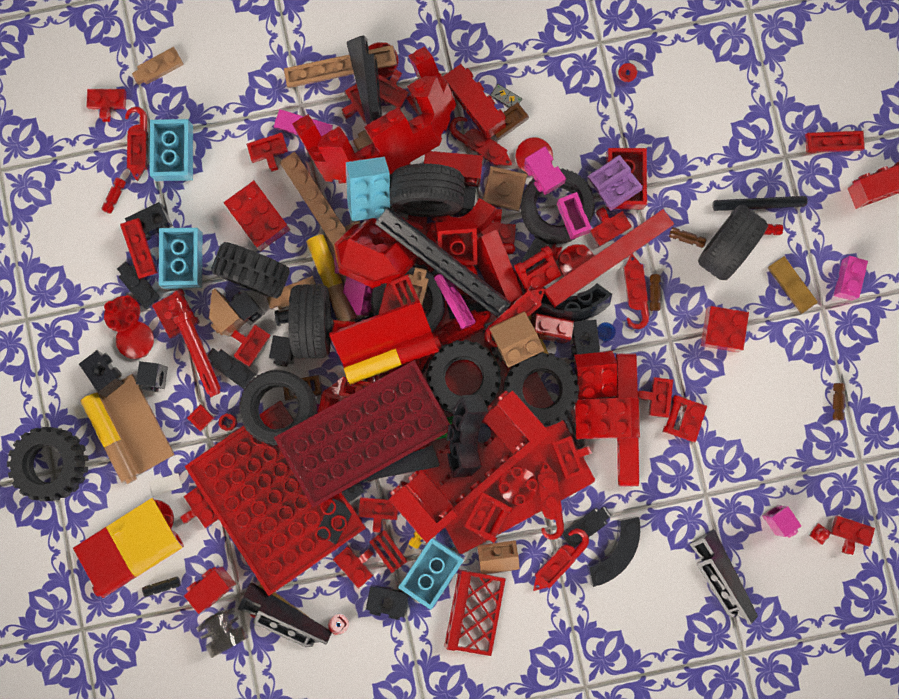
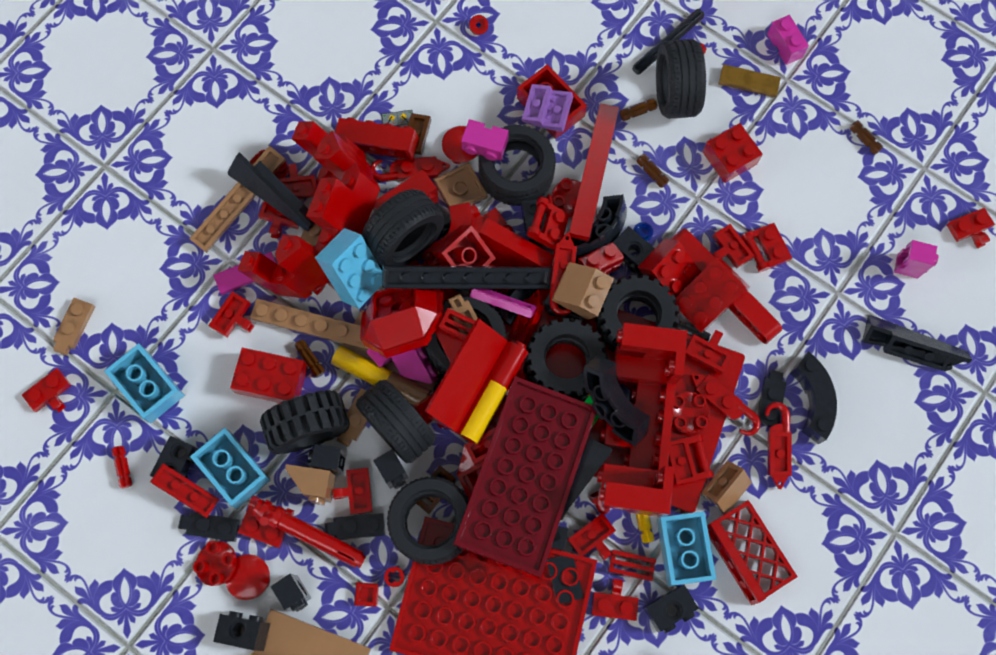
camera: 50 degrees left, 10 degrees down
(137, 144) = (108, 404): red plate -> none
(281, 317) = (367, 441): black bush -> none
(295, 226) = (309, 358): none -> reddish brown axle
(573, 216) = (540, 154): dark pink brick -> none
(609, 227) = (571, 150): red plate -> none
(636, 291) = (636, 181): red plate -> none
(820, 533) = (950, 247): red piece -> none

